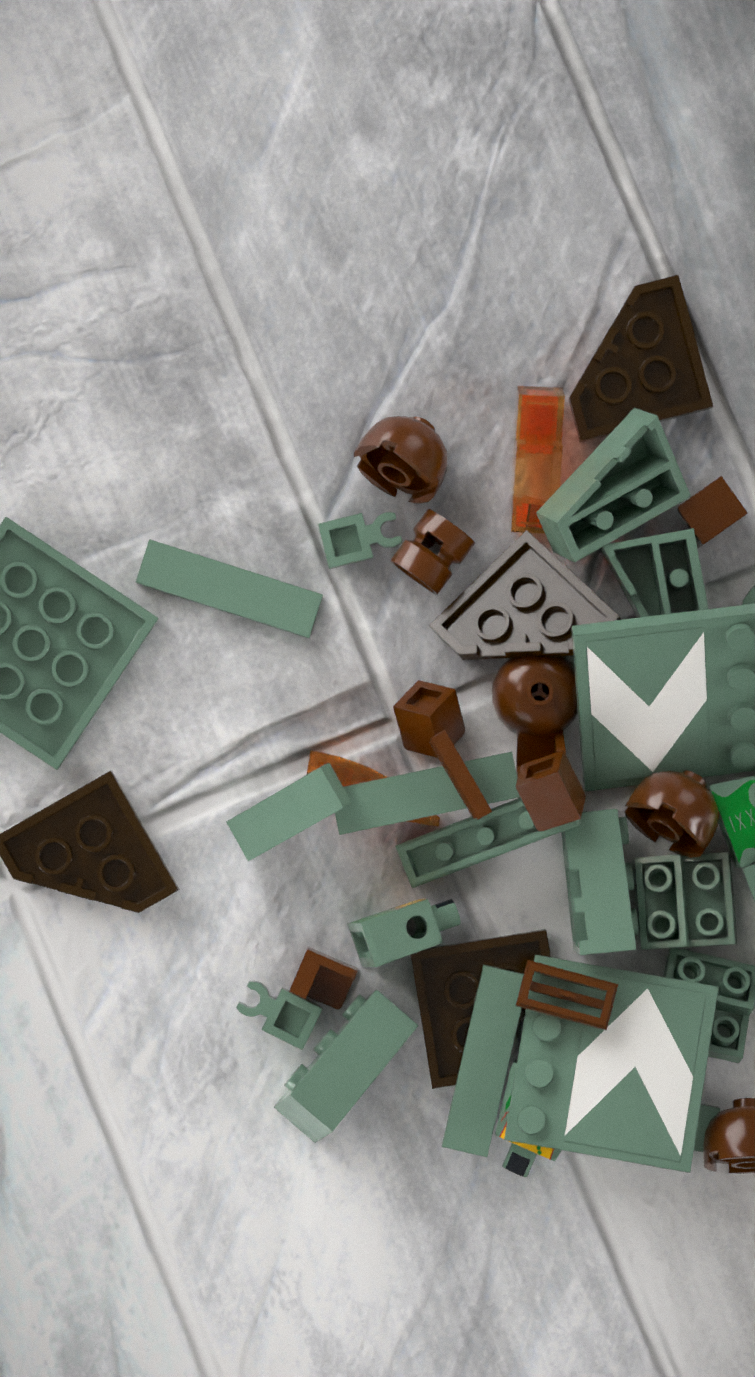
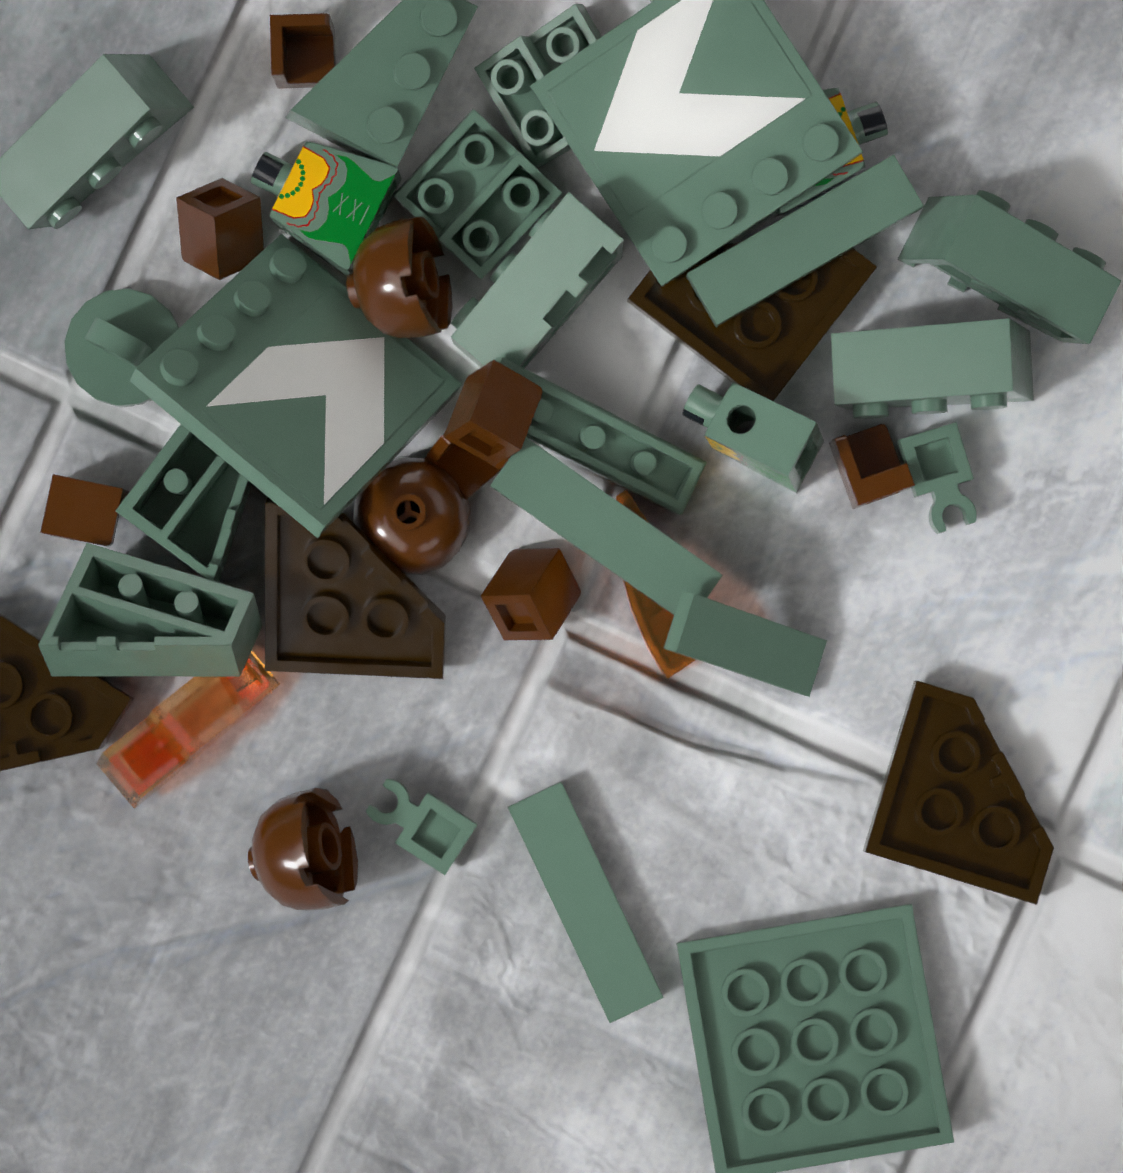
camera: 125 degrees left, 0 degrees up
(361, 1166) = (1013, 264): none -> sand green wedge
(423, 565) = (390, 738): reddish brown wheel -> none
(459, 775) = (560, 511): reddish brown tile -> none
(562, 1013) = (648, 173): reddish brown tile -> none

